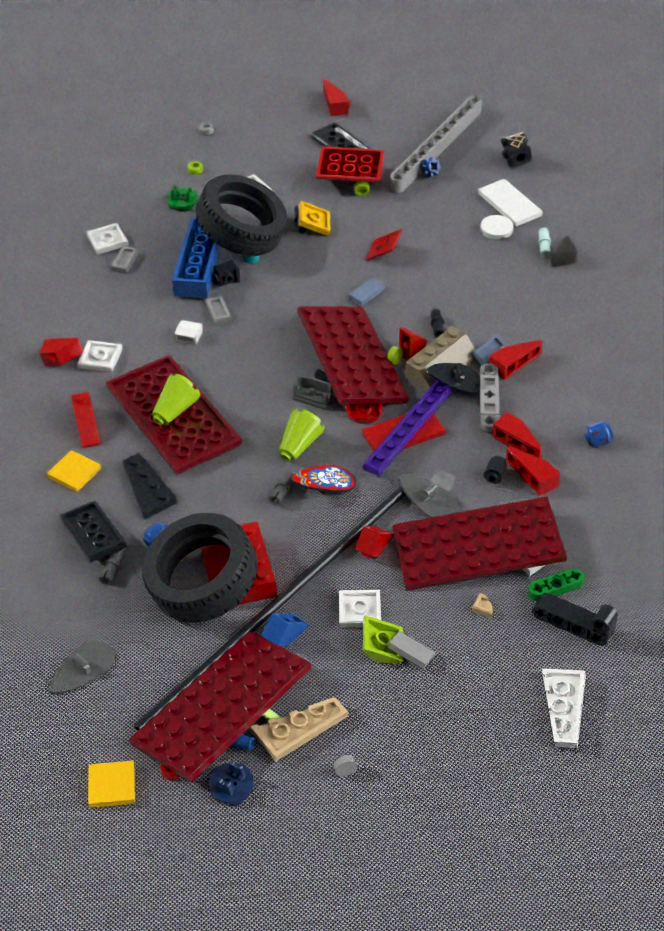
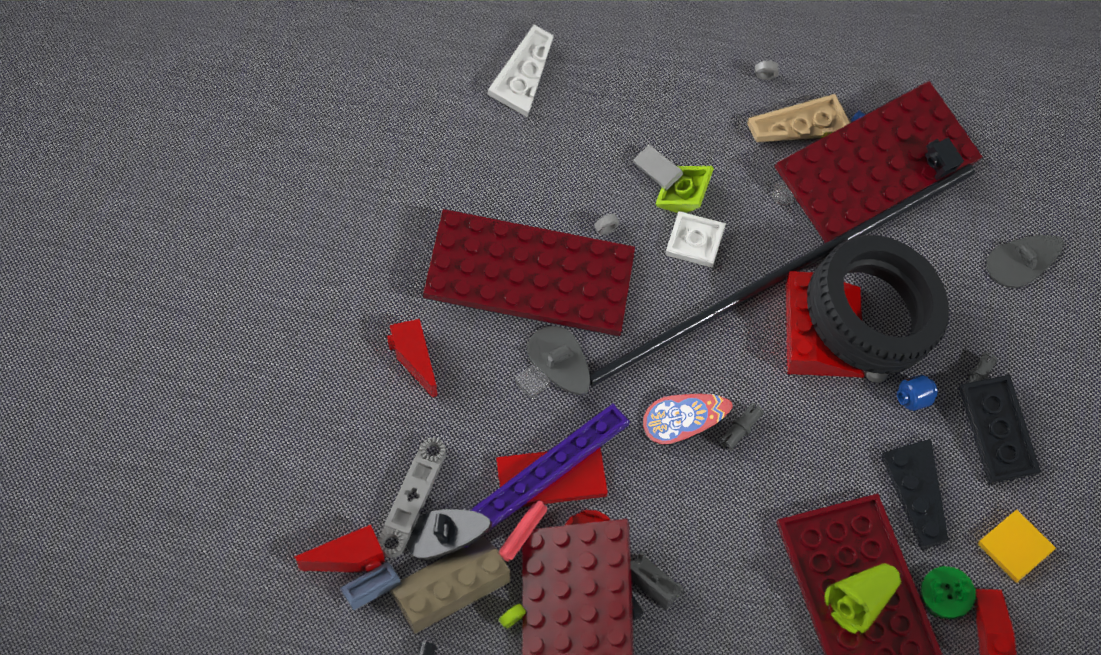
camera: 165 degrees left, 15 degrees up
(111, 784) = (1004, 121): yellow tile -> none
(118, 434) = (935, 594): none -> green plate
(164, 706) = (943, 157): none -> black brick
(226, 791) = (889, 81): dark blue plate -> none
(284, 628) = (789, 229): blue slope -> none
(299, 434) = (696, 497): lime cone -> none
(373, 541) = (650, 312): red slope -> none
(407, 391) = (522, 531): none -> coral axle
(410, 342) = (480, 620): red slope -> none
(434, 594) = (607, 224): none -> light grey tile
(483, 606) = (556, 203): tan tile -> none
(495, 469) = (461, 371): black brick -> none
(514, 433) = (410, 419): red slope -> none
(562, 578) = (471, 195): green beam -> none
(577, 620) = (464, 149): black beam -> none
(598, 434) = (303, 384): blue head -> none

